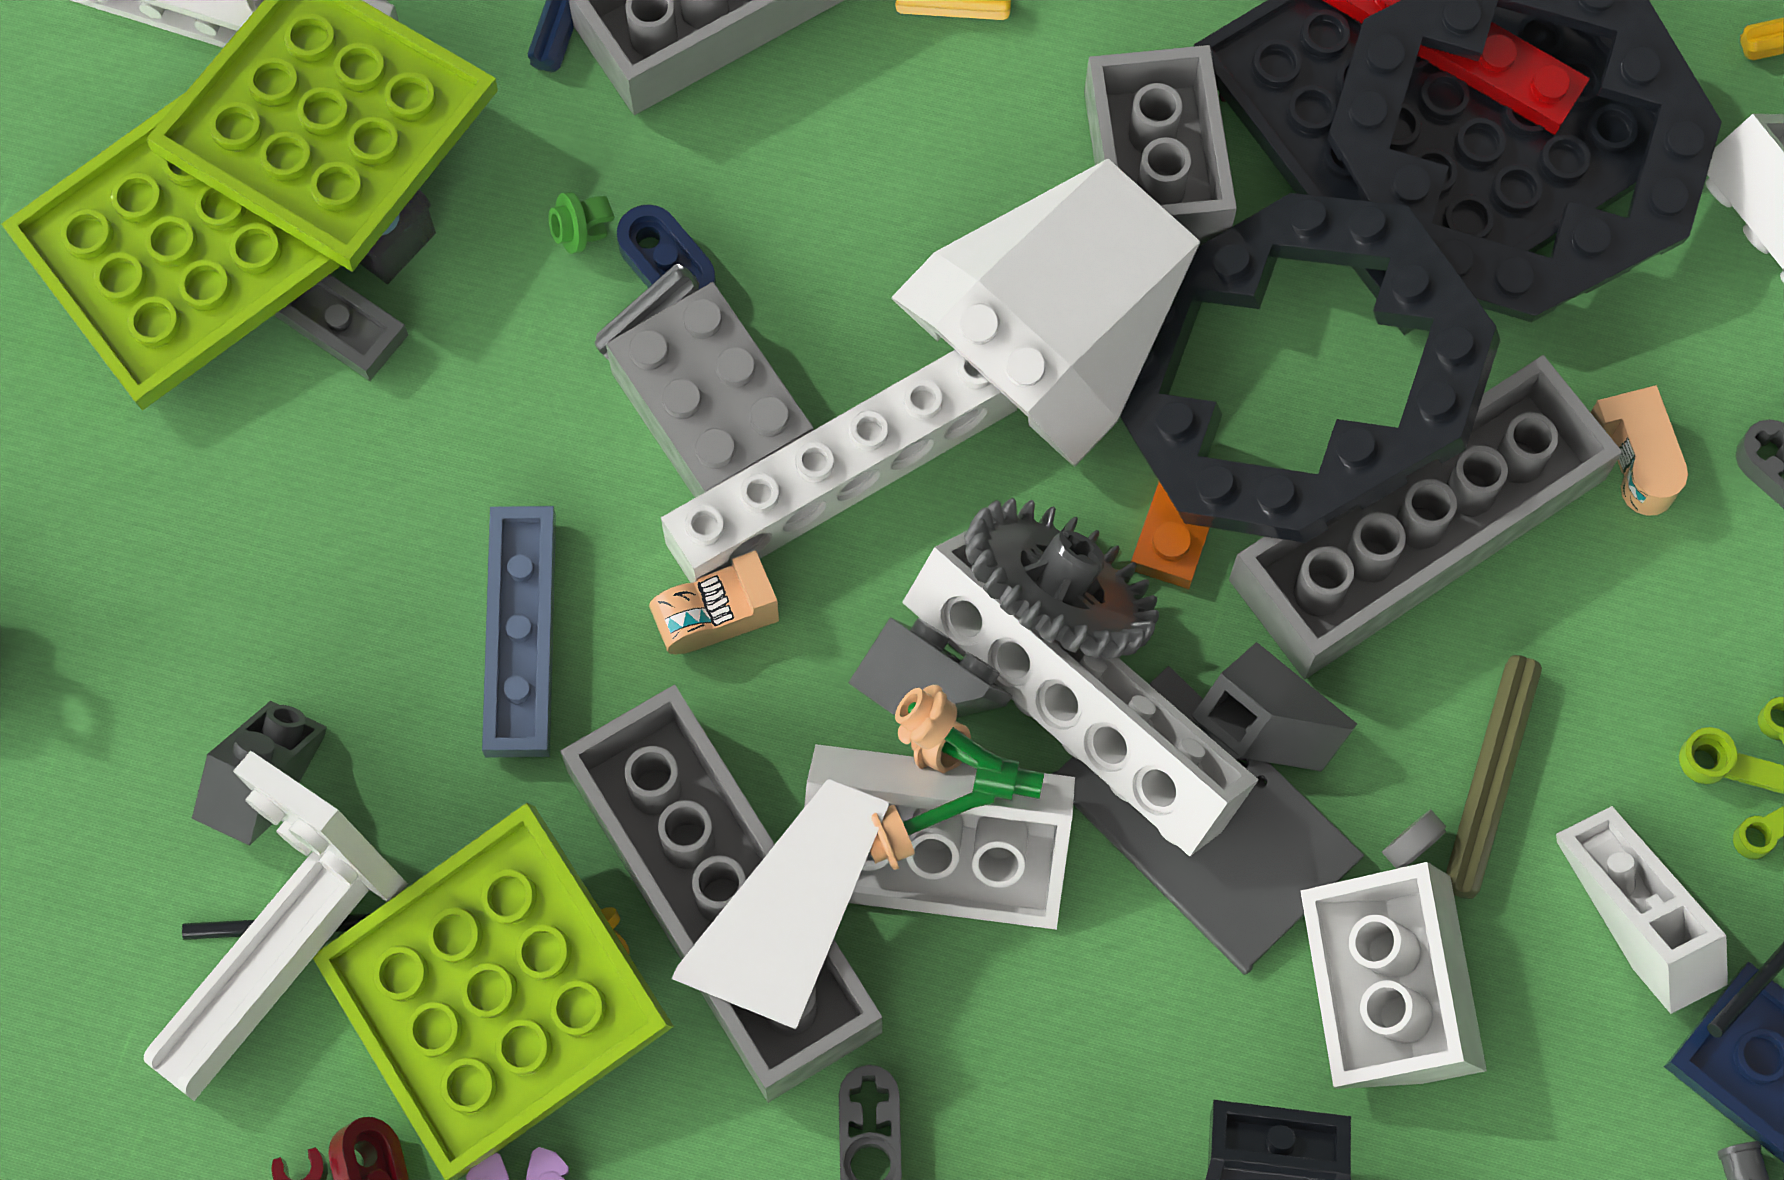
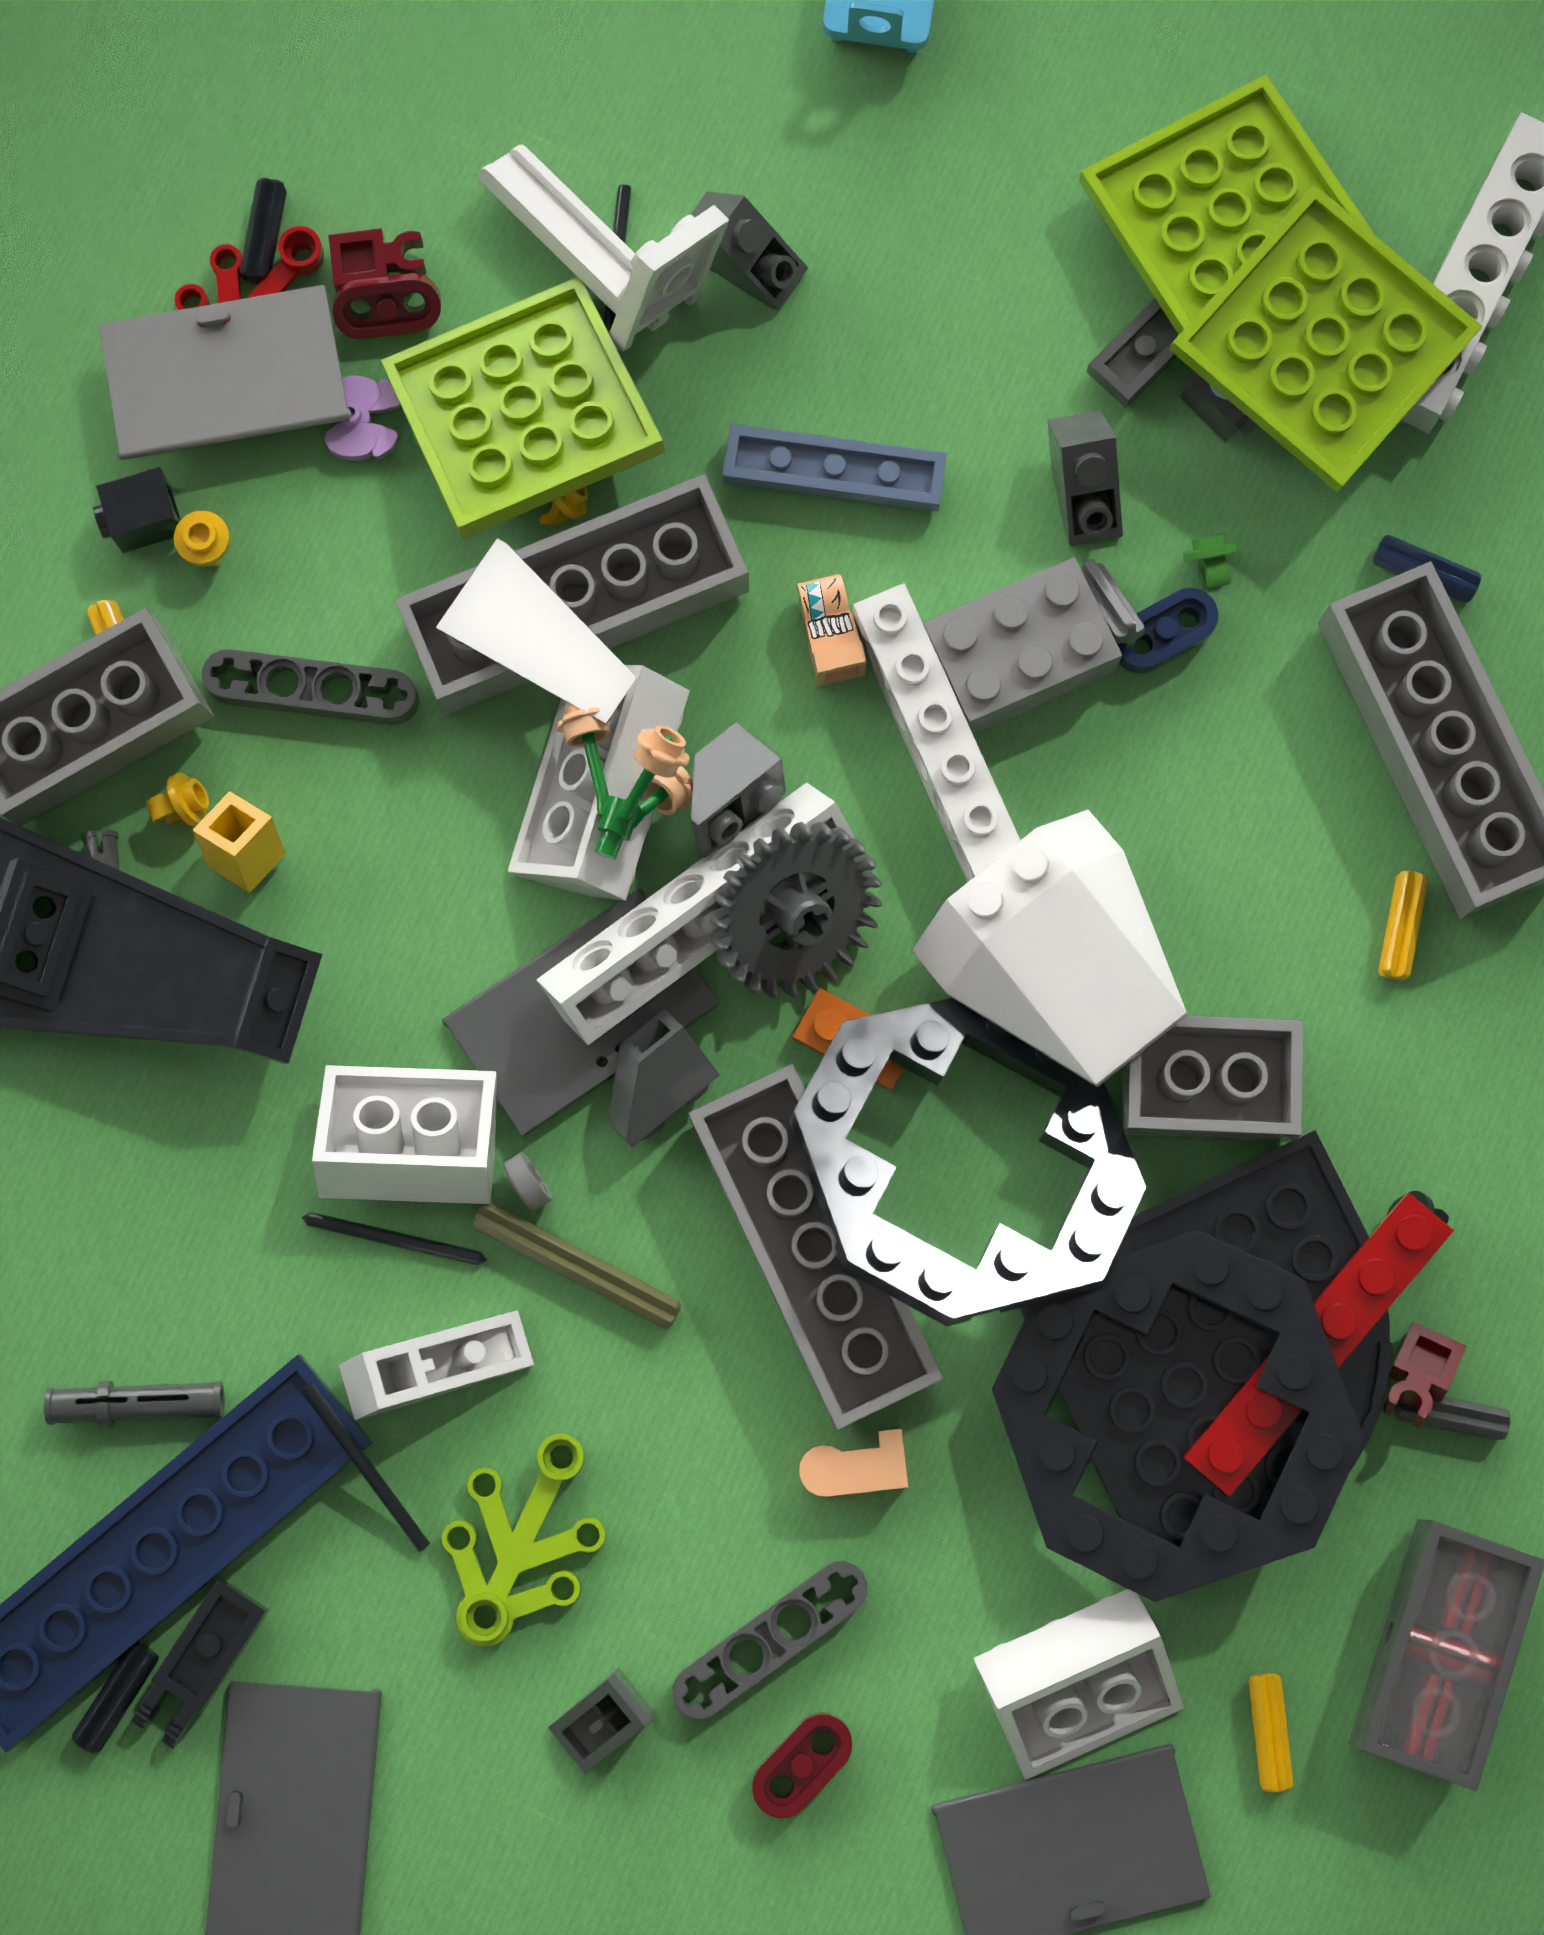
camera: 100 degrees right, 10 degrees up
(497, 358) = (1086, 476): none -> dark grey slope
(1507, 976) = (394, 1238): none -> black axle

